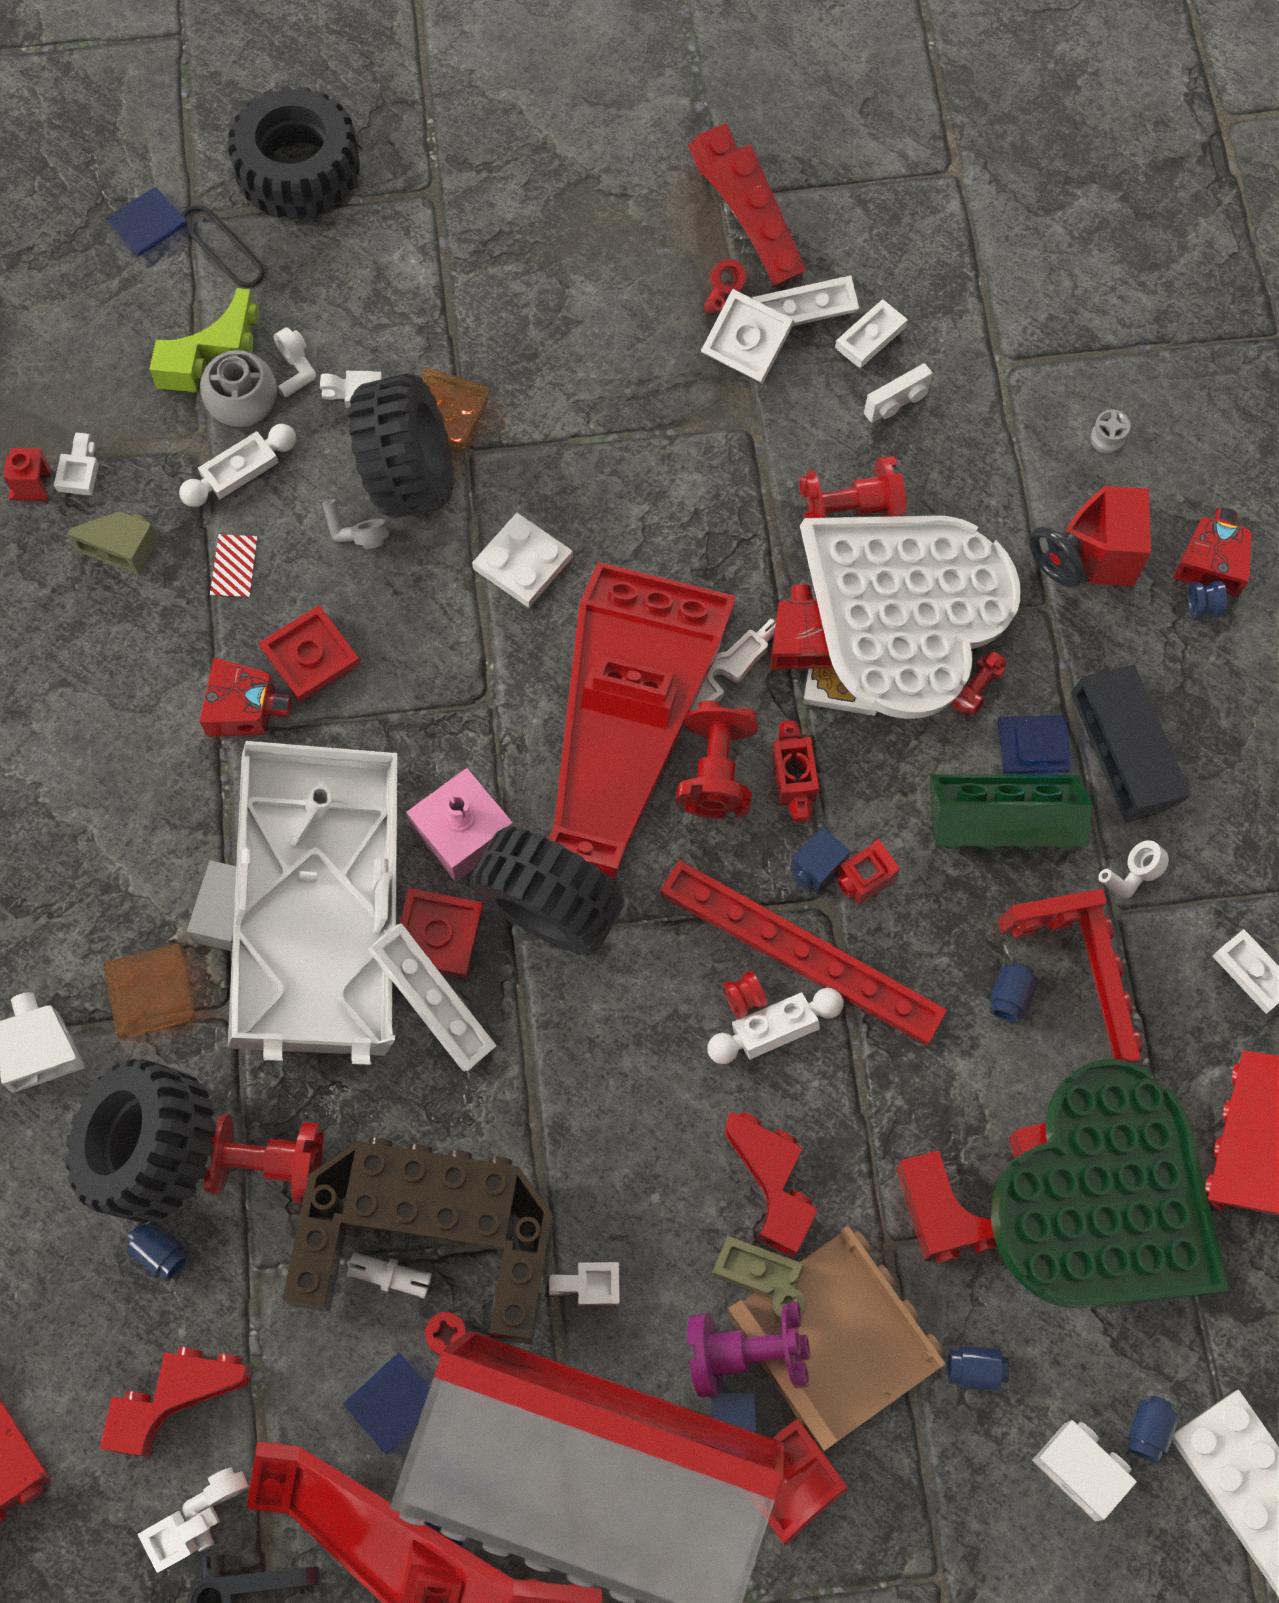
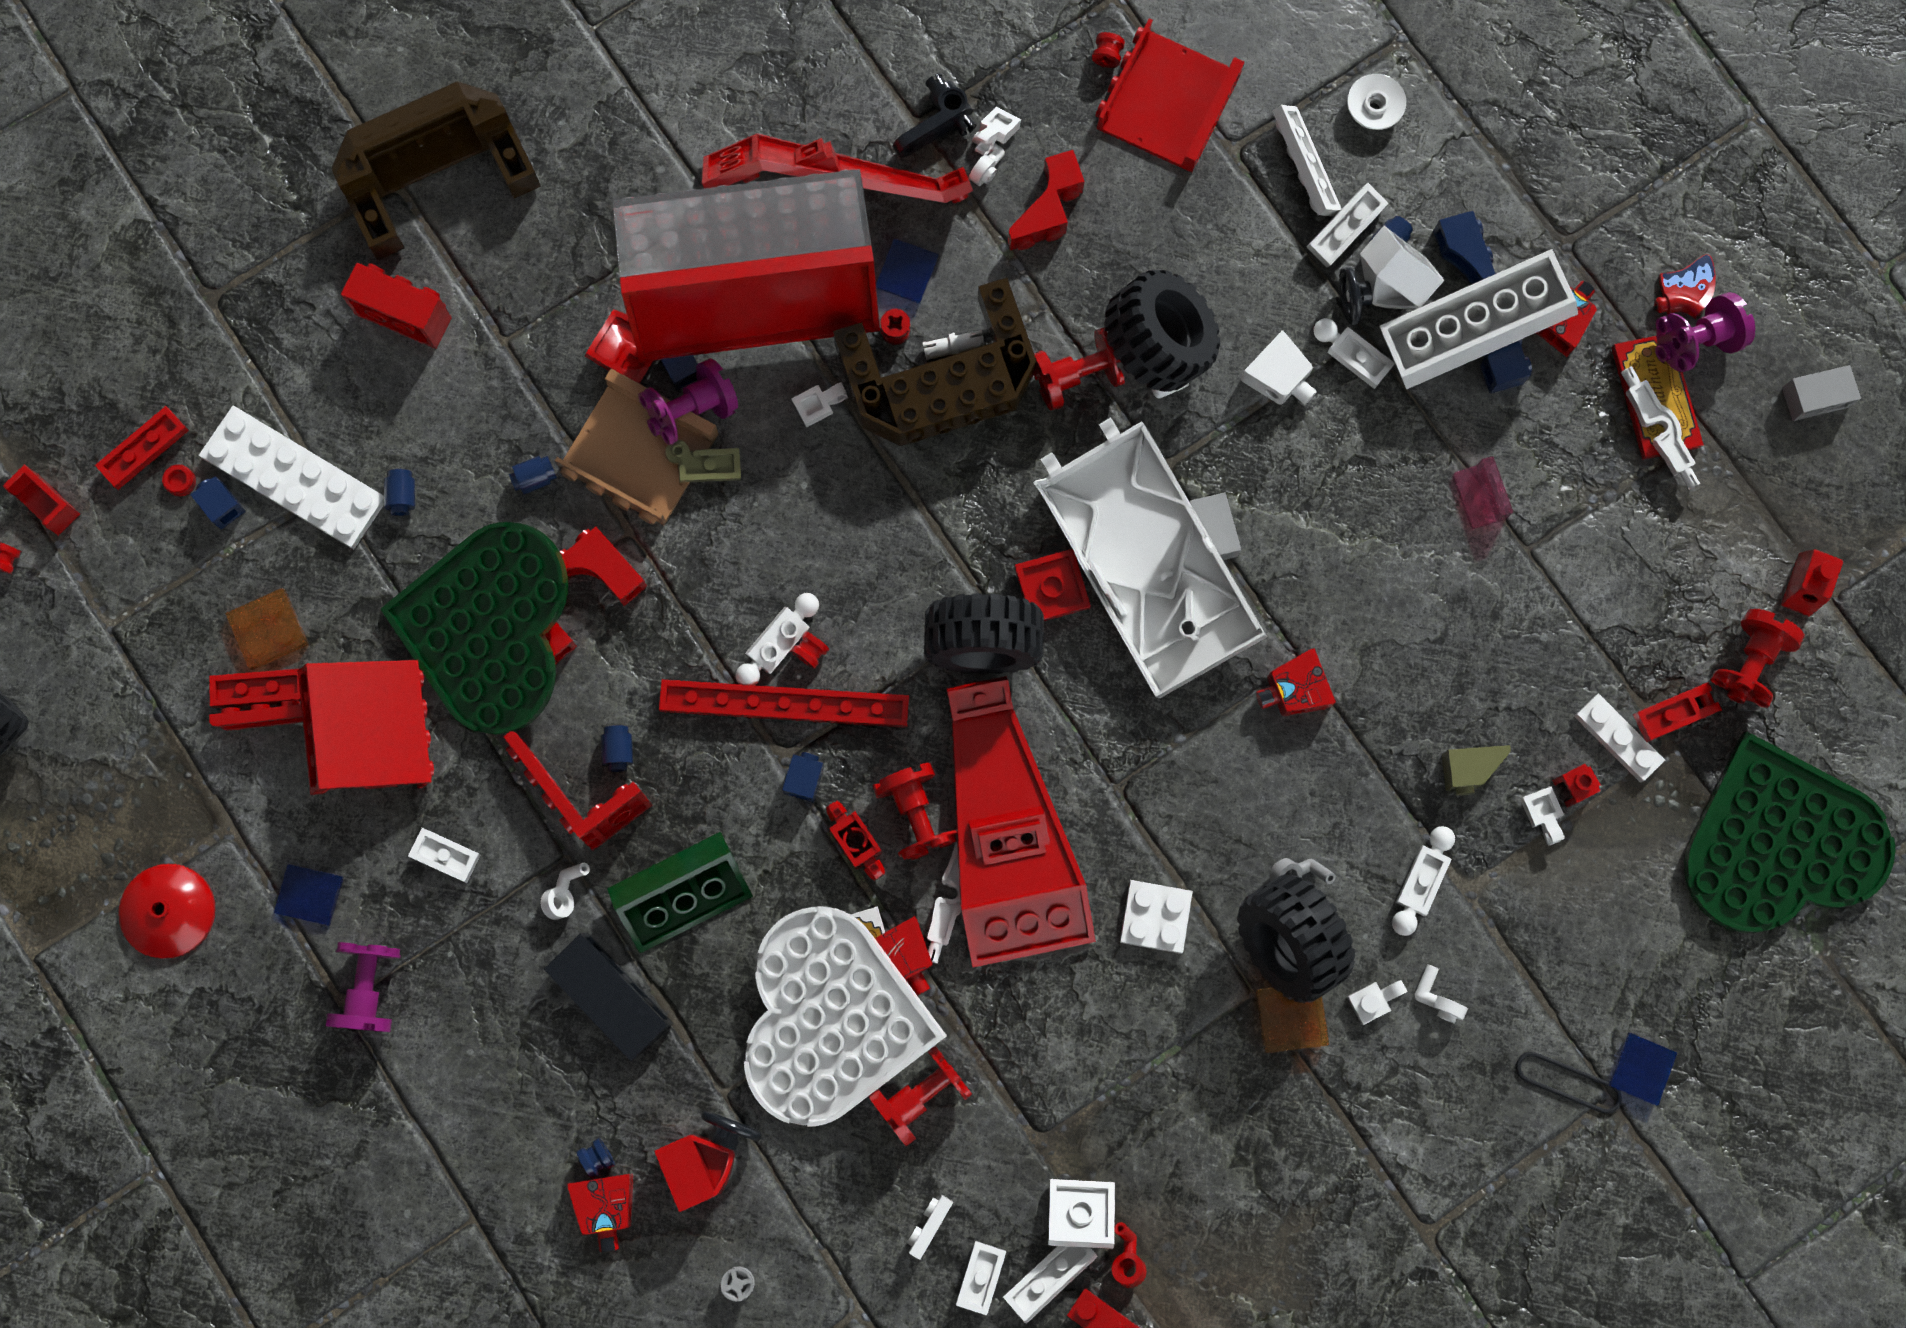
camera: 150 degrees right, 10 degrees up
(149, 991) = (1229, 449): clear orange plate -> none
(156, 1250) = (1110, 282): dark blue brick -> none
(182, 361) = (1502, 987): lime arch -> none
(233, 565) = (1375, 799): sticker -> none
(247, 388) = (1485, 943): light grey wheel -> none
(286, 119) = (1603, 1195): black tyre -> none
(309, 653) = (1271, 751): red plate -> none
(432, 997) = (1027, 530): white plate -> none
(458, 823) = (1079, 671): bright pink brick -> none
(771, 1161) = (733, 541): red arch -> none
(867, 873) = (764, 785): red window -> none
(969, 698) = (745, 1009): red bar -> none
(1034, 744) = (684, 963): clear blue piece -> none
(1085, 1469) = (435, 444): white brick -> none

